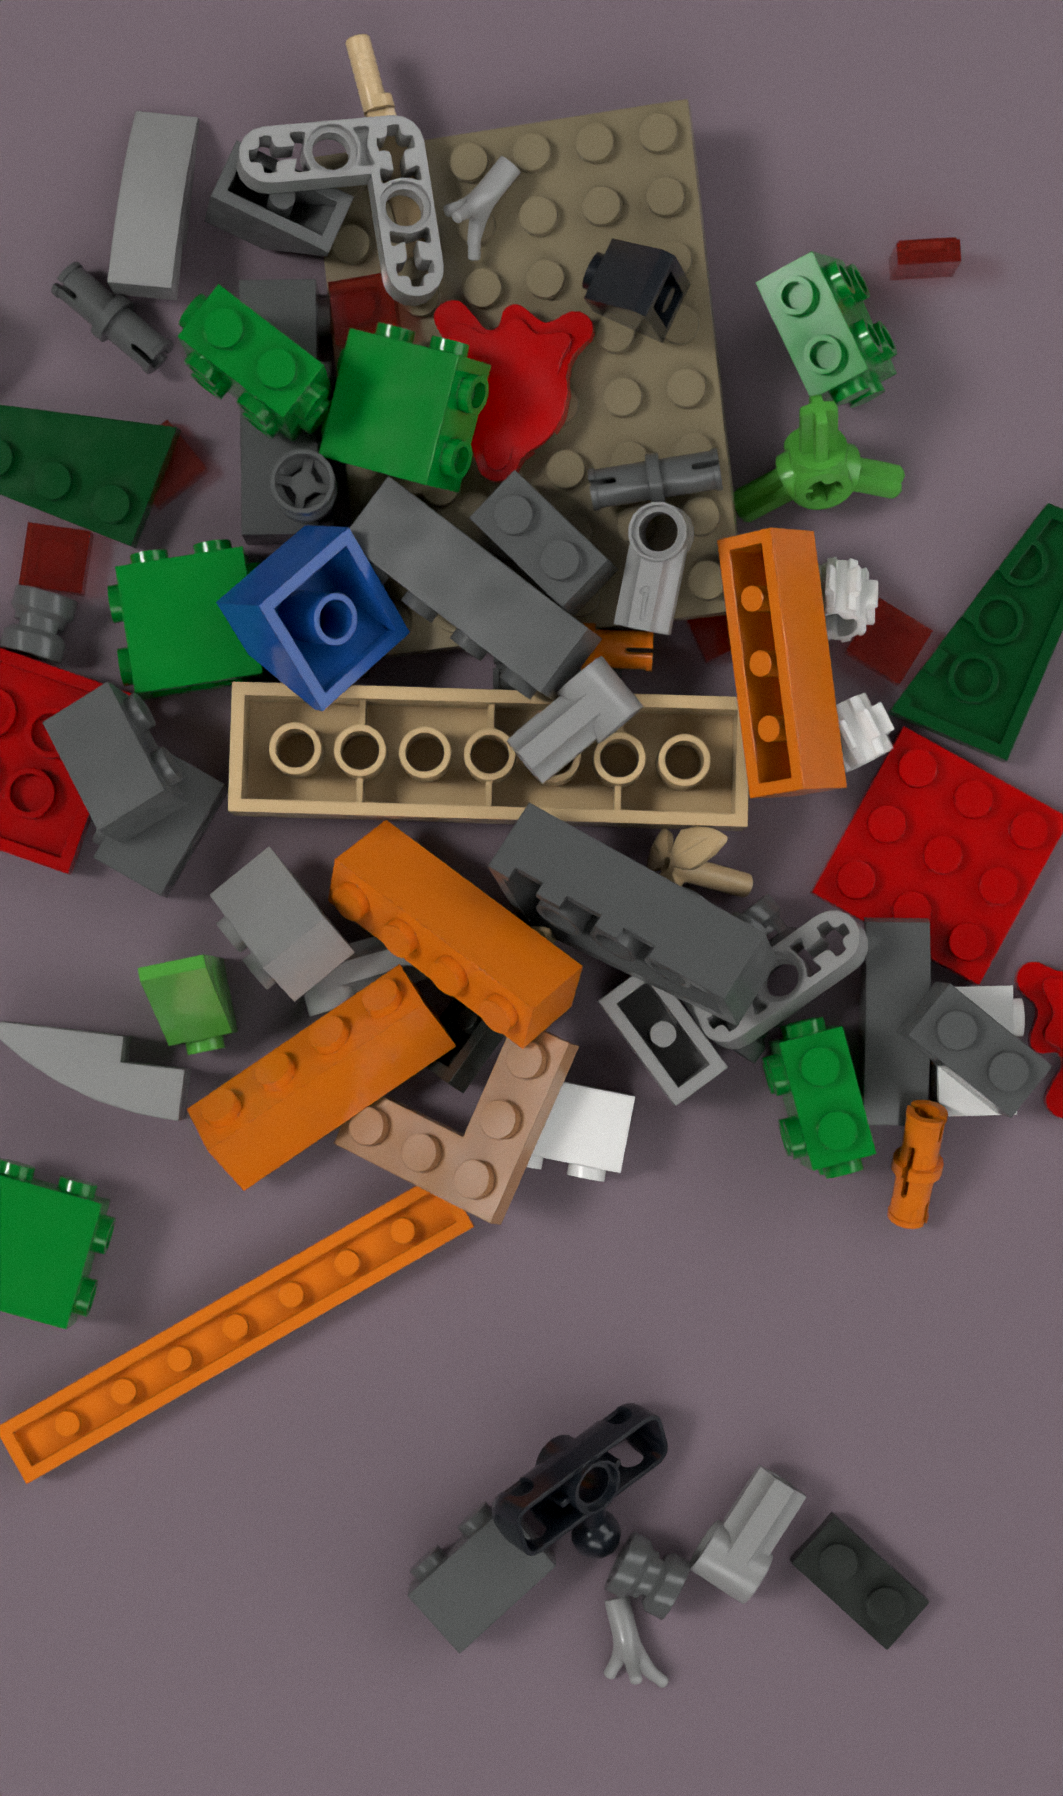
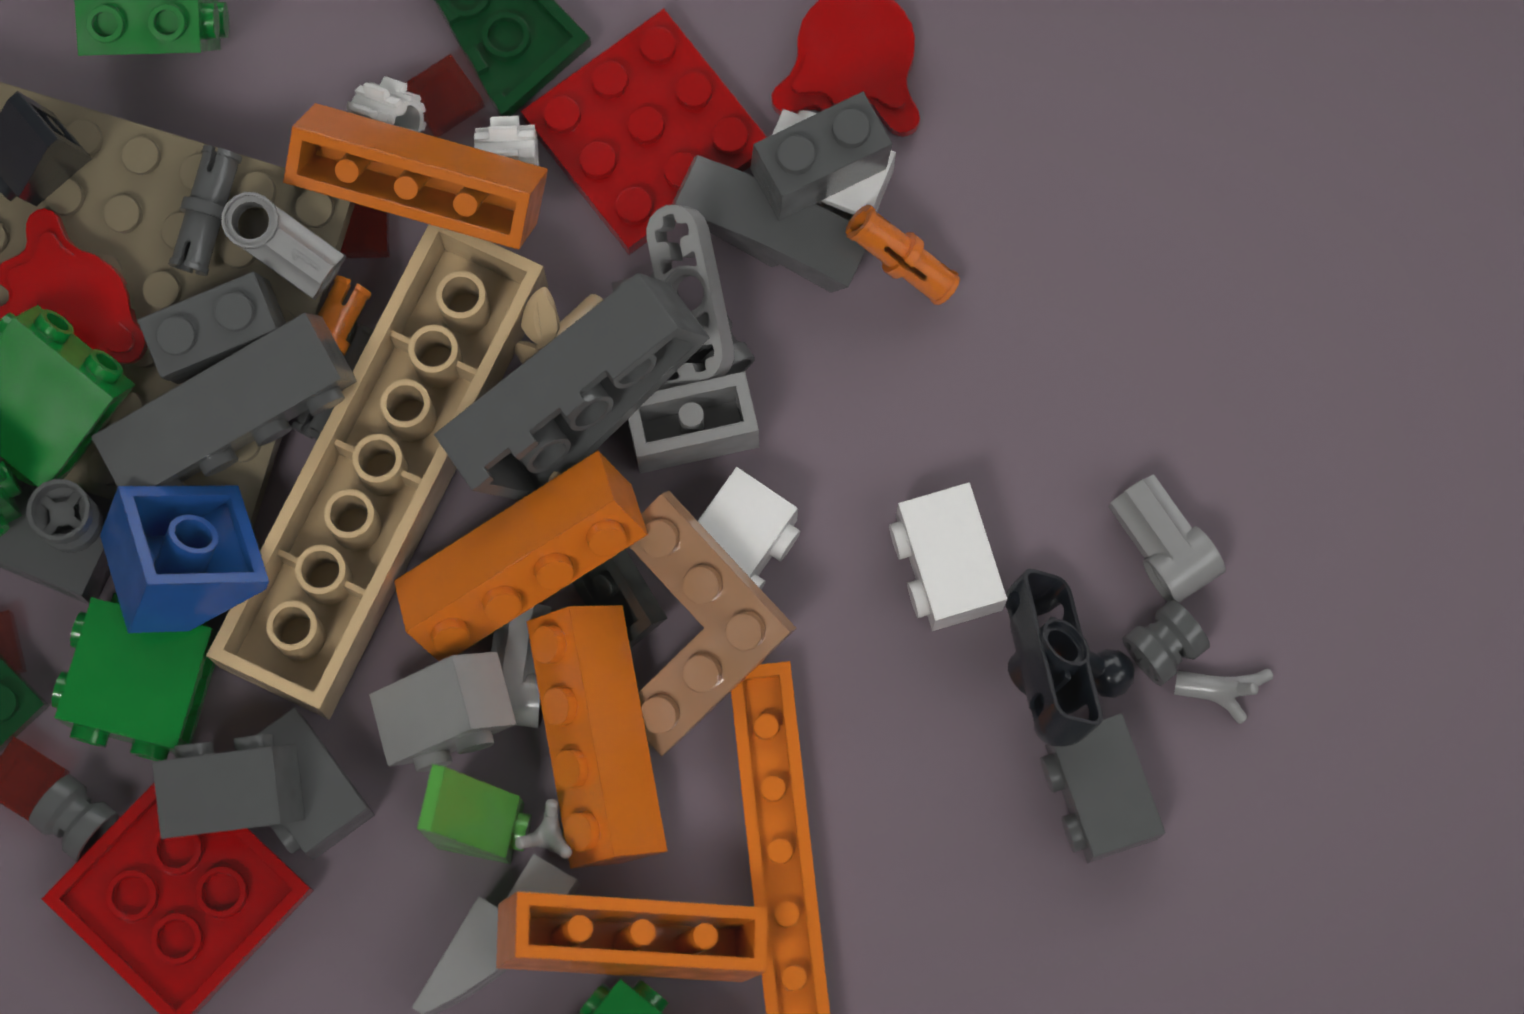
camera: 60 degrees left, 10 degrees down
(142, 1198) = (631, 937): none -> orange brick
(208, 1075) = (548, 834): none -> light grey bar
(585, 712) = (378, 354): light grey piece -> none
(639, 1333) = (948, 557): none -> white brick
(817, 469) = (263, 81): bright green bush -> none
(821, 1098) = (806, 309): green brick -> none
(859, 1581) = (1247, 465): pearl dark grey plate -> none

